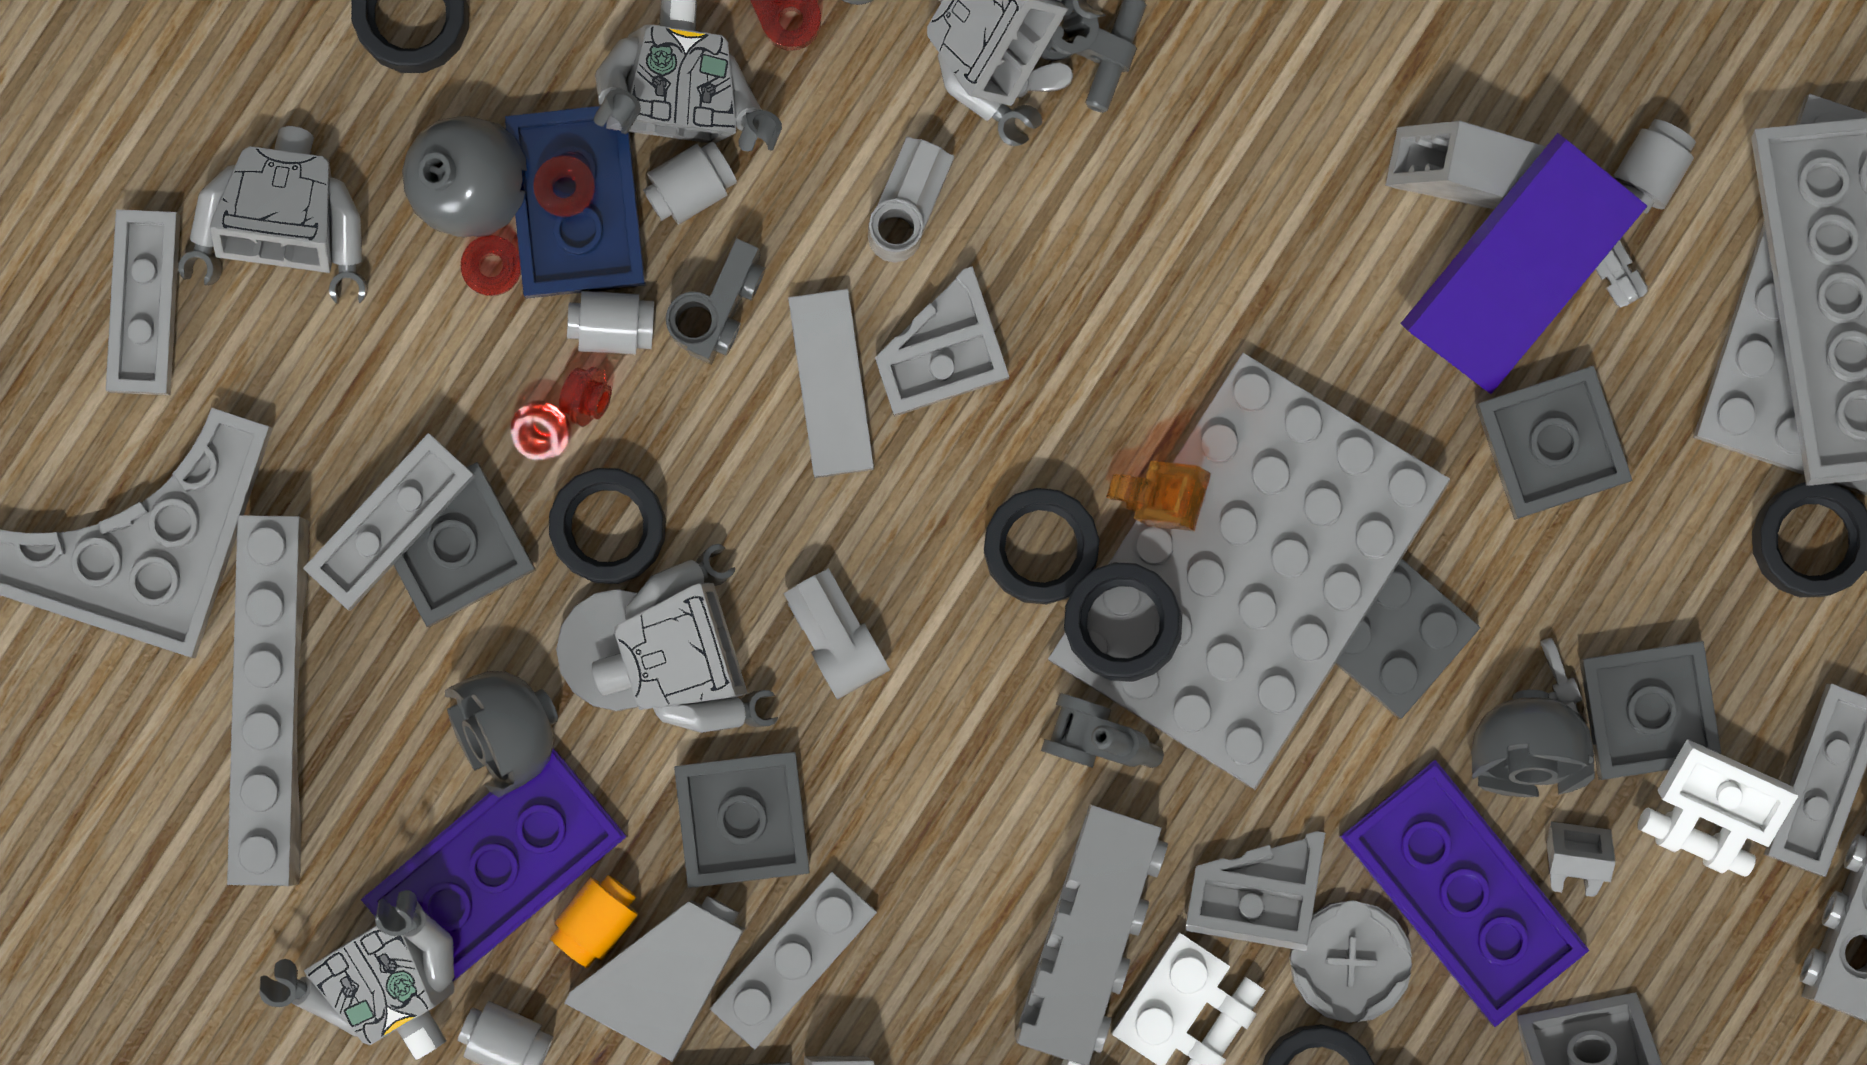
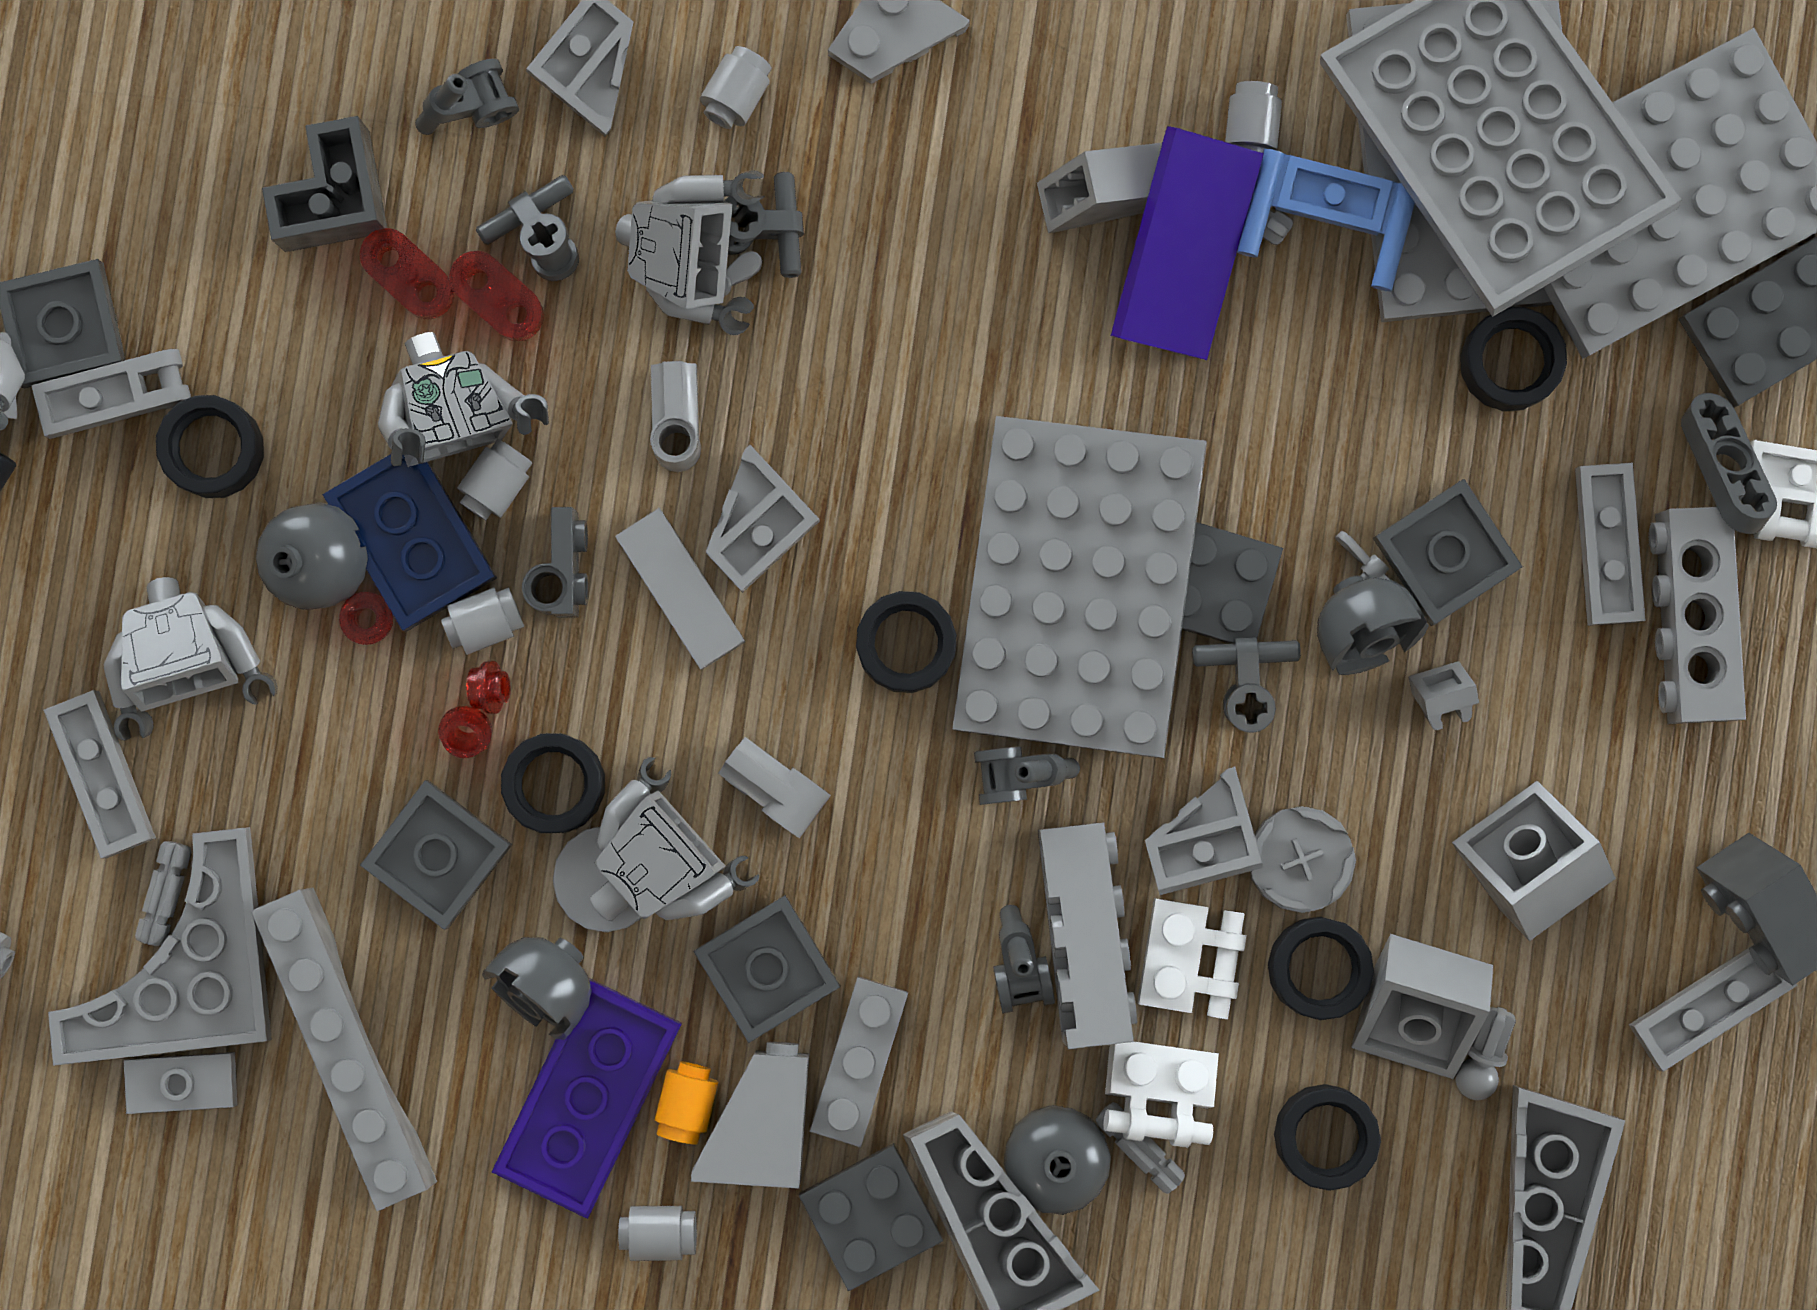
camera: 25 degrees left, 0 degrees up
(81, 660) = (180, 1083): none -> light grey plate
(152, 455) = (163, 893): none -> light grey axle
(377, 979) = (533, 1231): torso -> none
(389, 522) = (375, 860): light grey plate -> none
(564, 167) = (378, 528): clear red plate -> none
(1004, 948) = (1022, 975): none -> dark grey piece
(1107, 578) = (1003, 632): black tyre -> none
(1167, 496) = (987, 558): clear orange plate -> none
(1389, 722) = (1246, 656): none -> dark grey piece
(1464, 893) = (1366, 764): dark purple tile -> none
(1553, 442) = (1274, 375): dark grey plate -> none
(1700, 285) = (1331, 197): none -> medium blue plate
(1724, 793) = (1536, 592): white plate -> none

